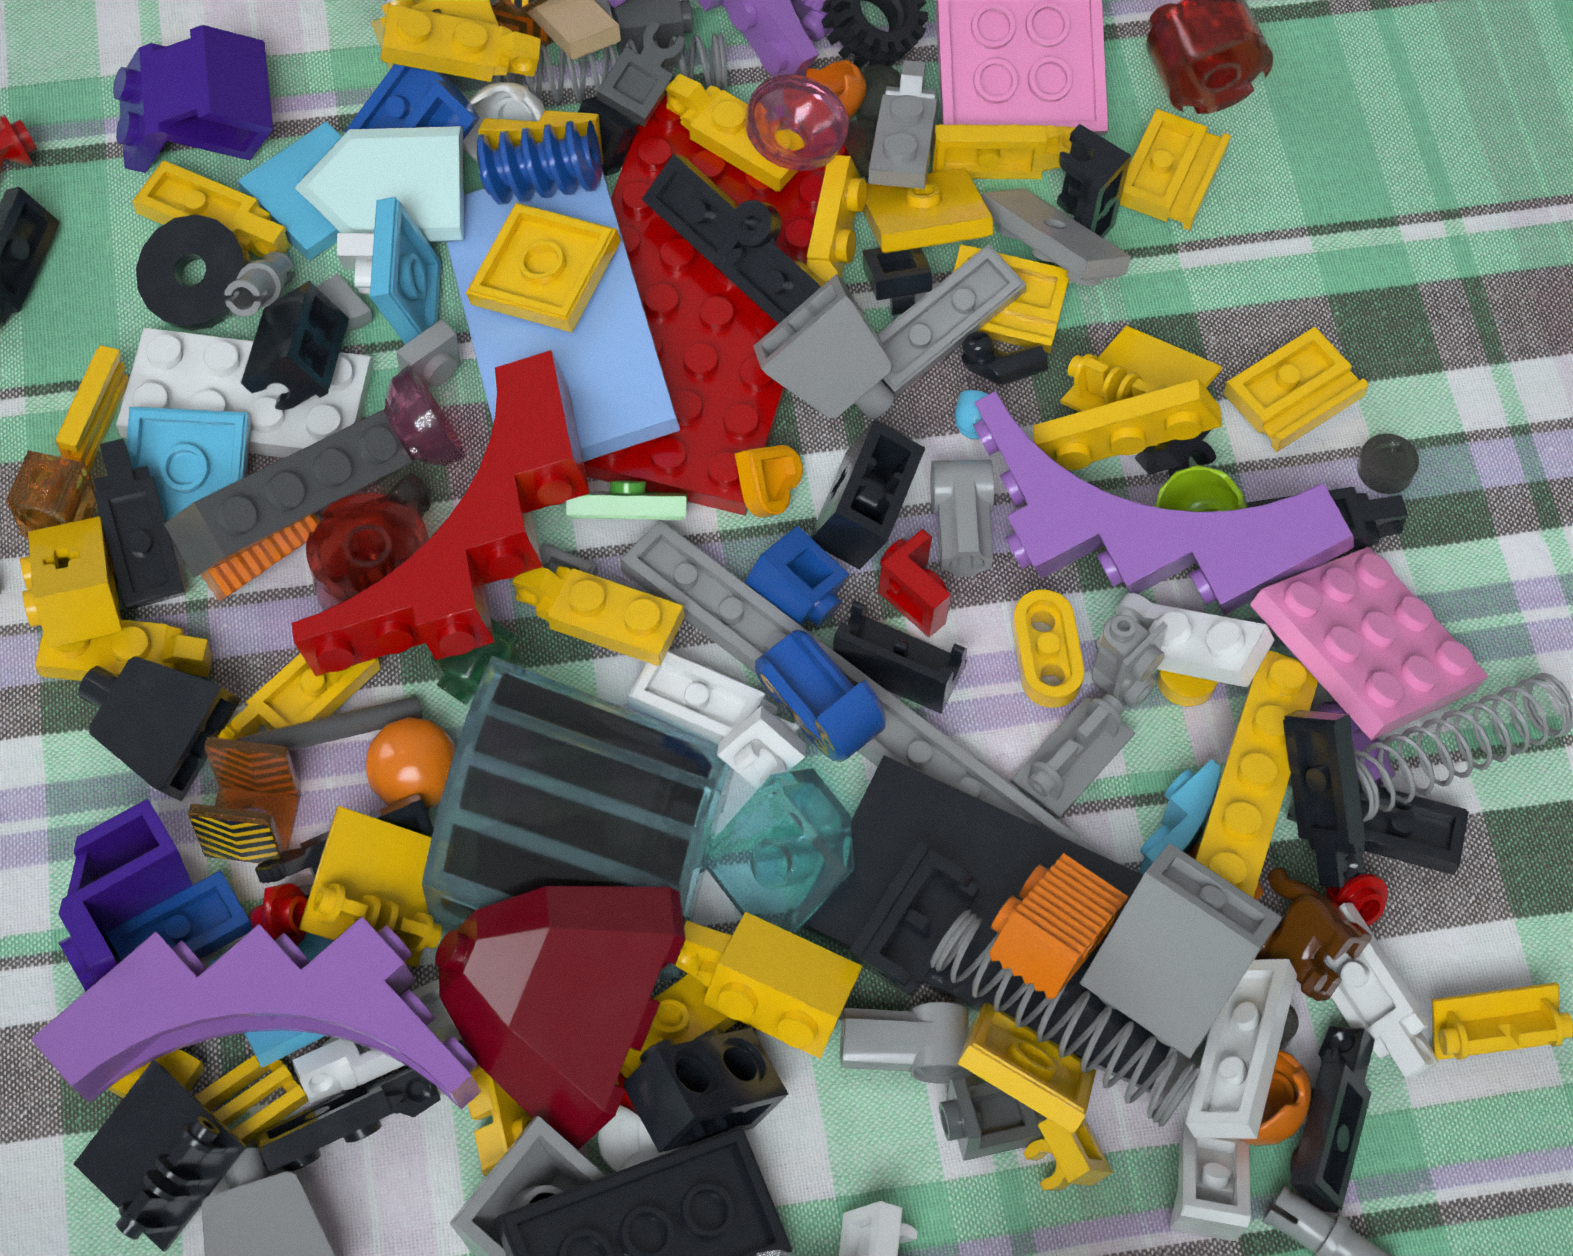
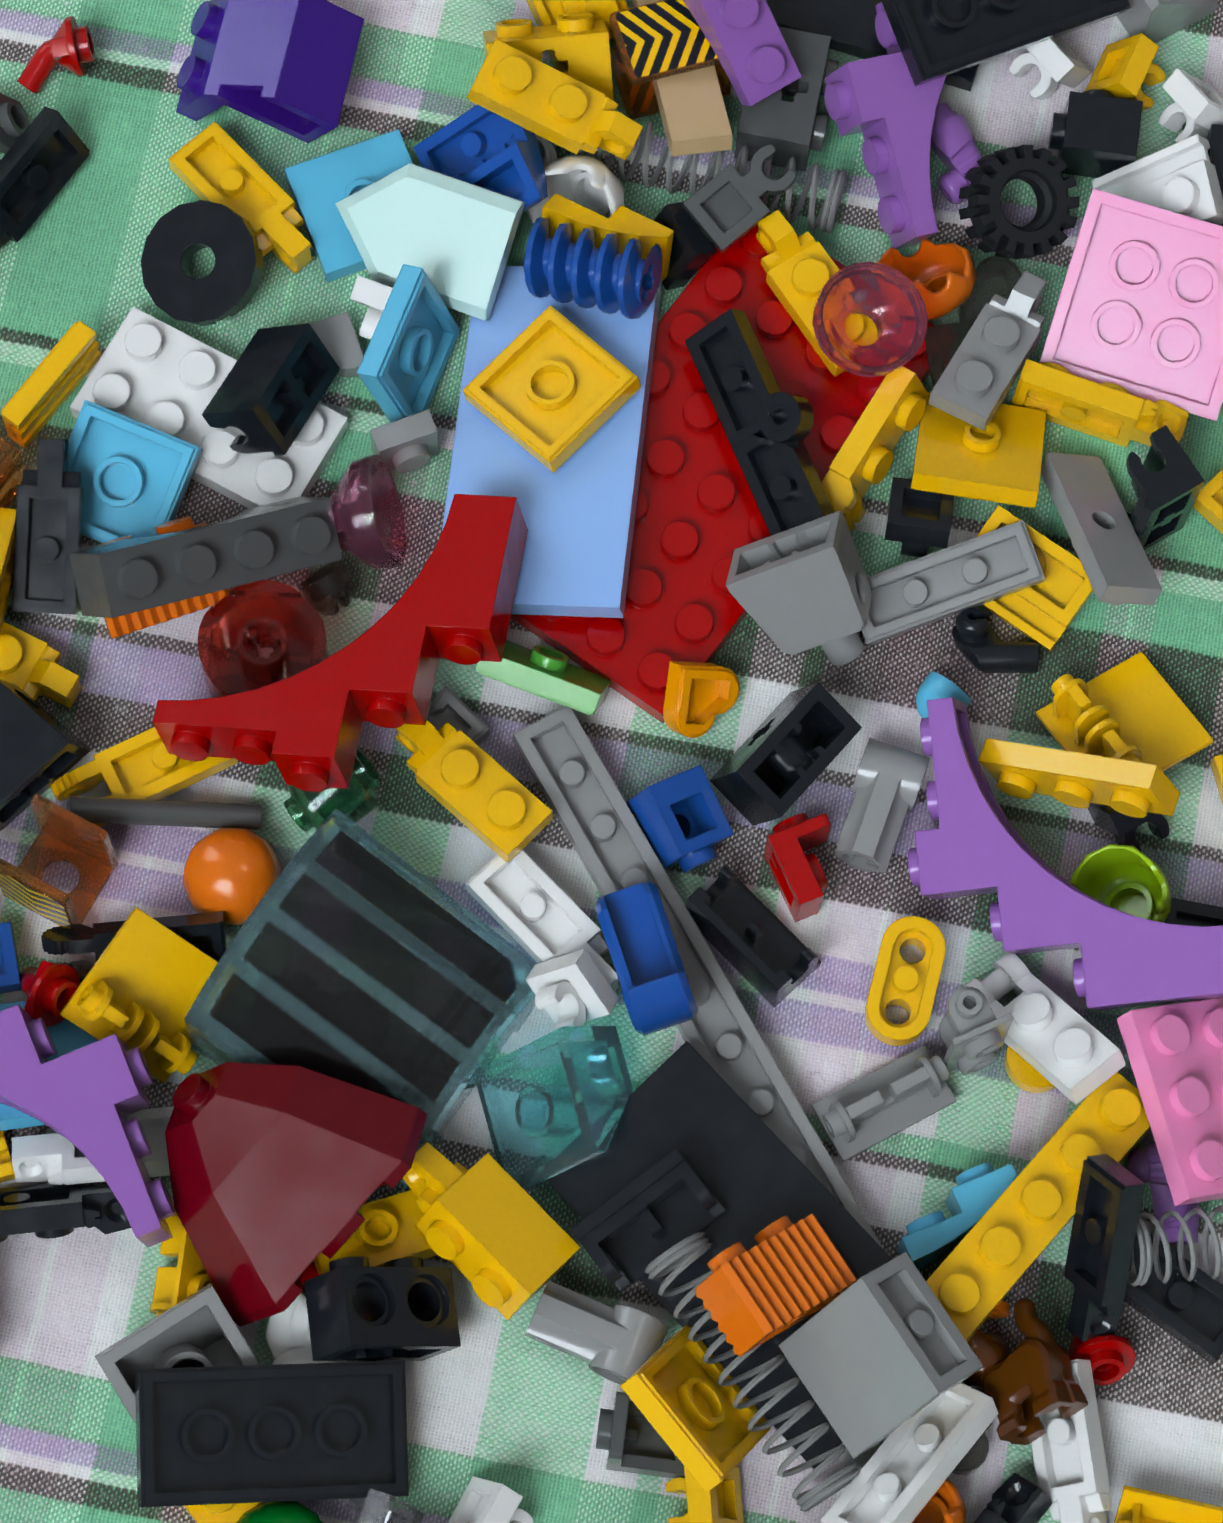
camera: 20 degrees right, 10 degrees up
(259, 284) = (261, 304): light grey pin -> none

